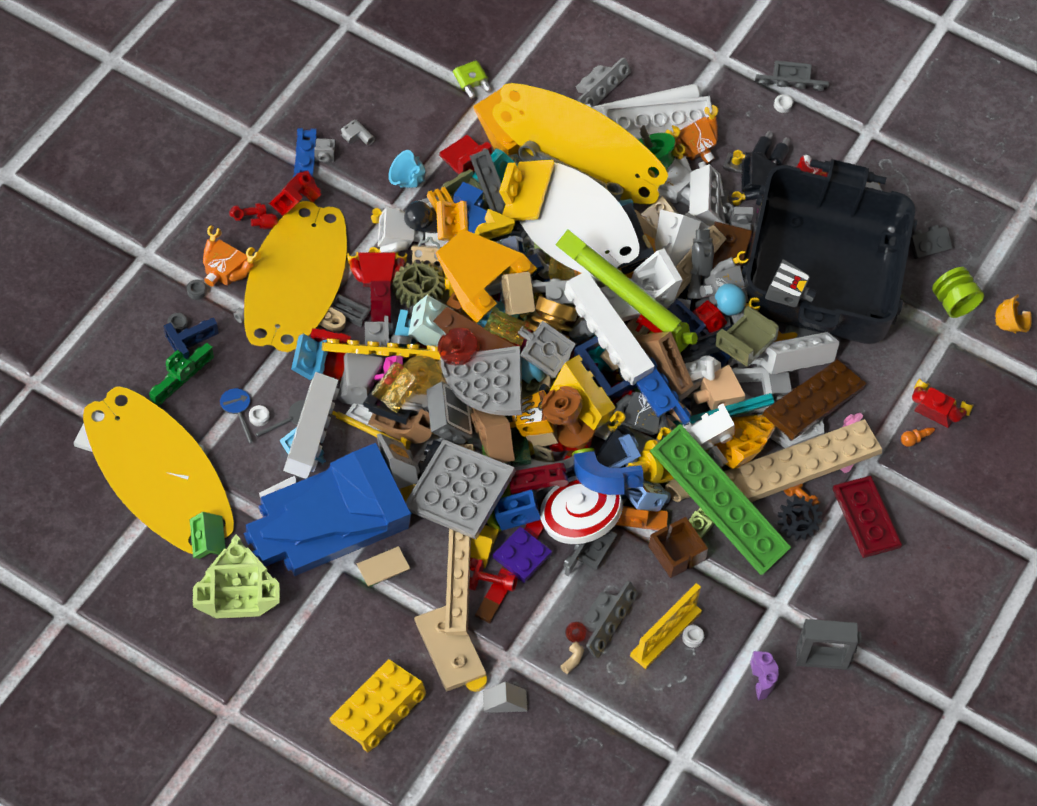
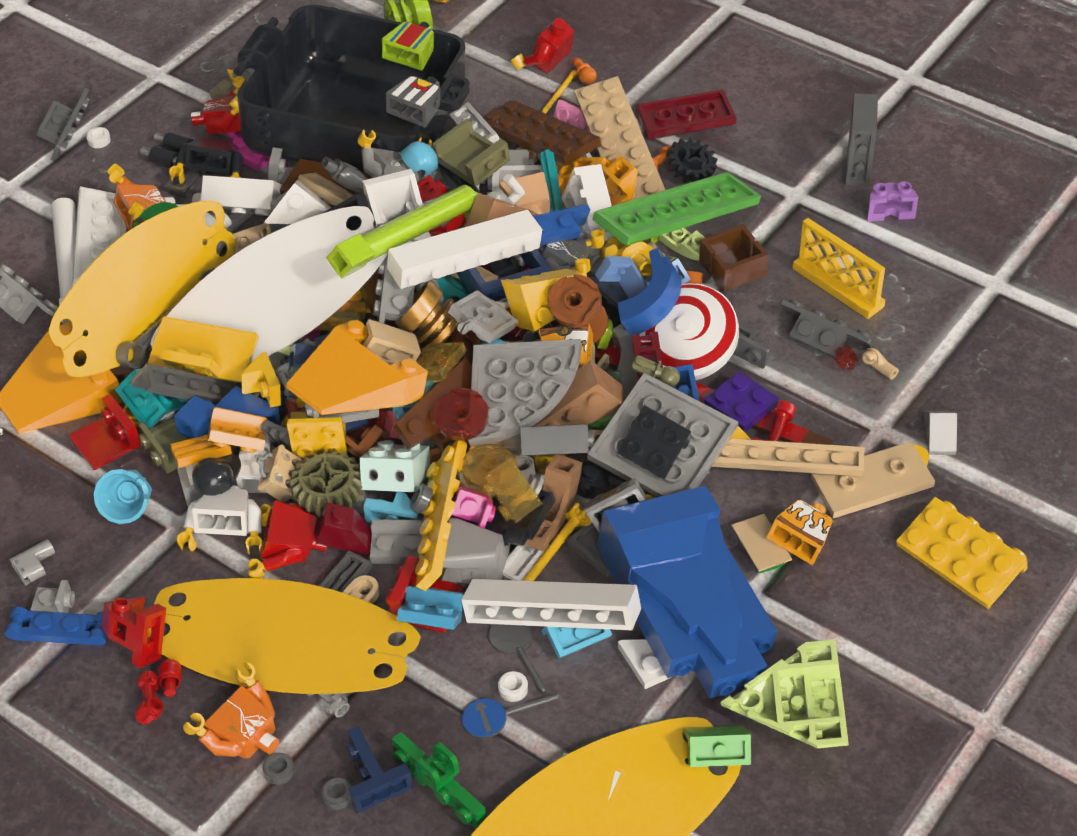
camera: 80 degrees left, 10 degrees down
(391, 591) = (801, 530): none -> light orange torso
(449, 478) = (654, 442): none -> black hinge
(519, 487) = (667, 375): none -> olive axle
(864, 277) = (409, 44): none -> lime torso
(886, 419) = (547, 107): none -> yellow axle

